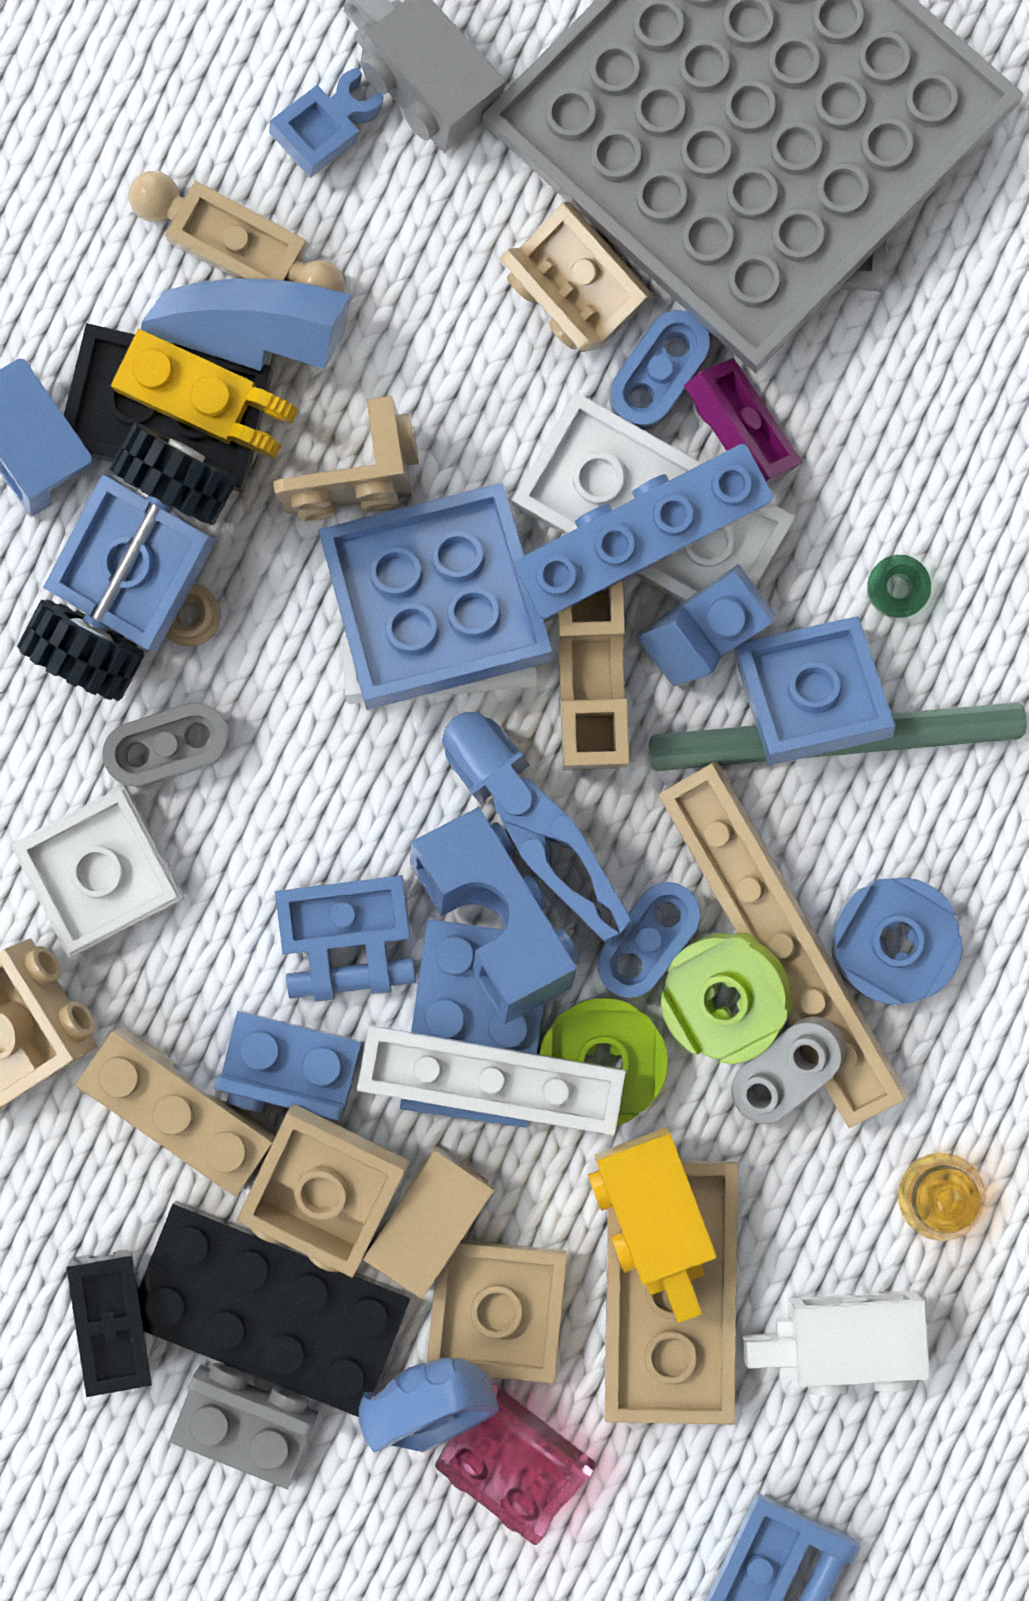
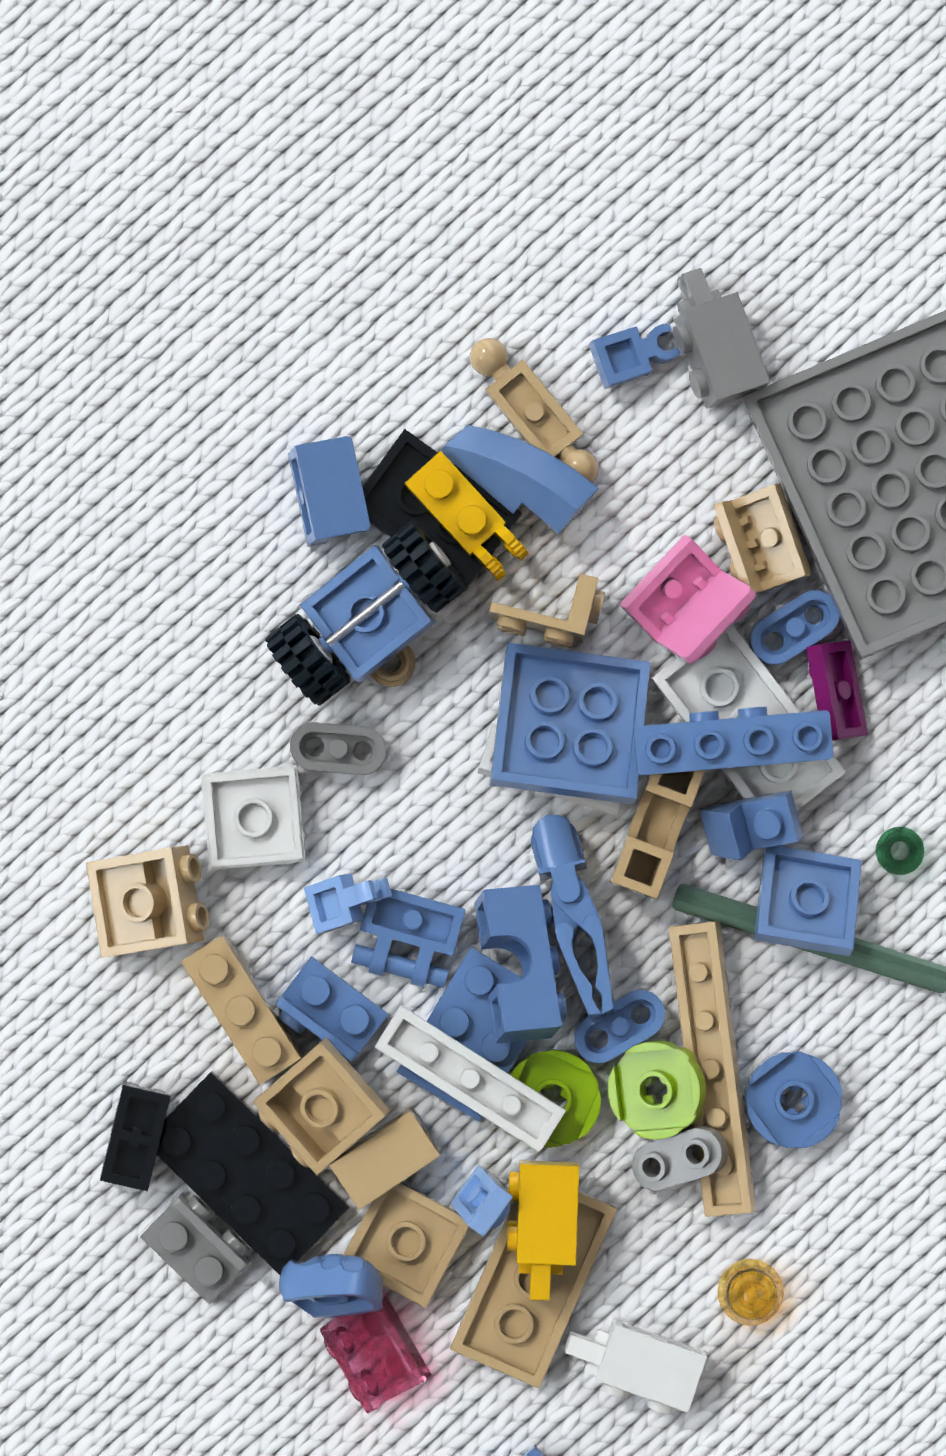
camera: 20 degrees right, 0 degrees up
(241, 927) = (338, 900): none -> light blue plate
(516, 388) = (687, 601): none -> bright pink bracket
(569, 1225) = (482, 1201): none -> light blue plate

